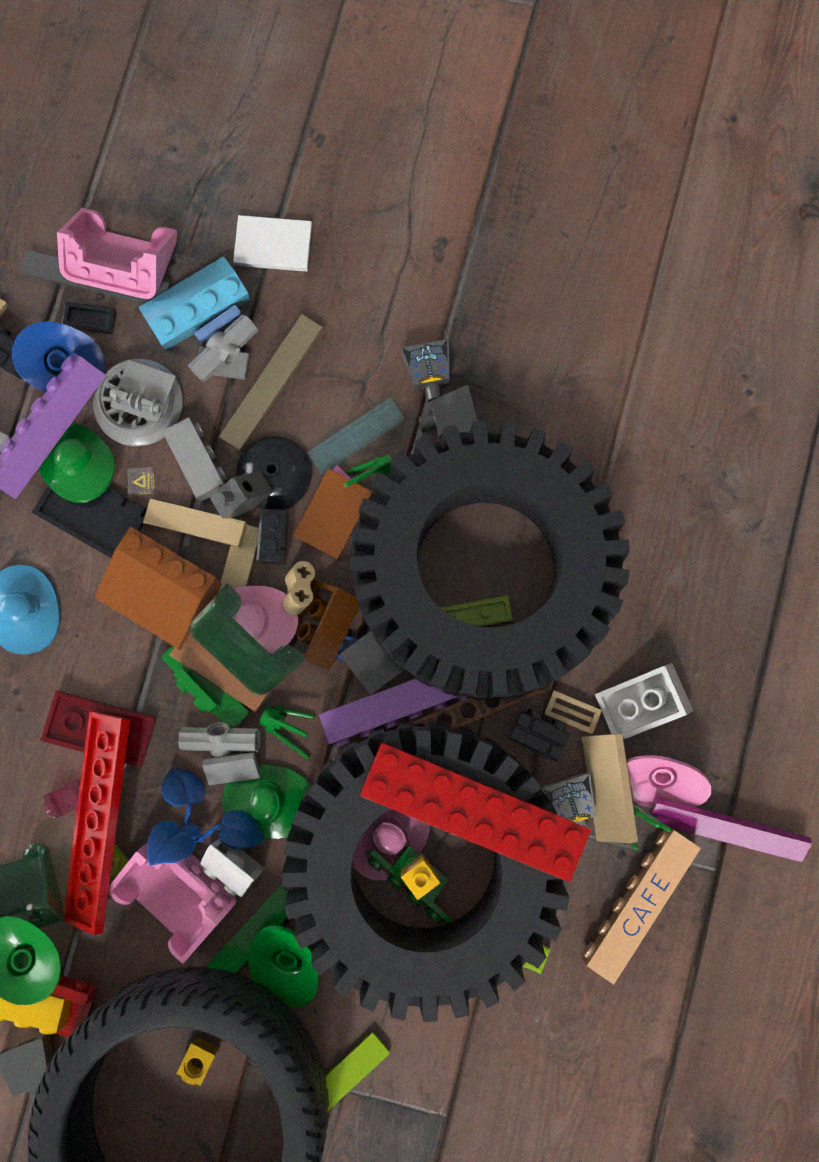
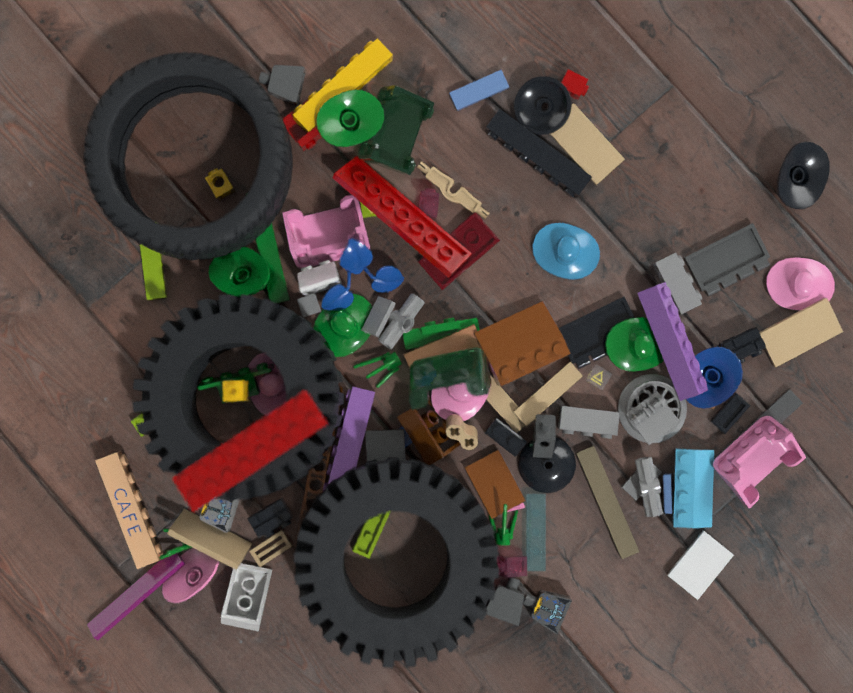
camera: 120 degrees right, 5 degrees up
(32, 797) = (462, 196): none -> tan piece
(271, 857) = (309, 305): none -> light grey tile
(406, 433) = (512, 566): none -> clear pink bracket

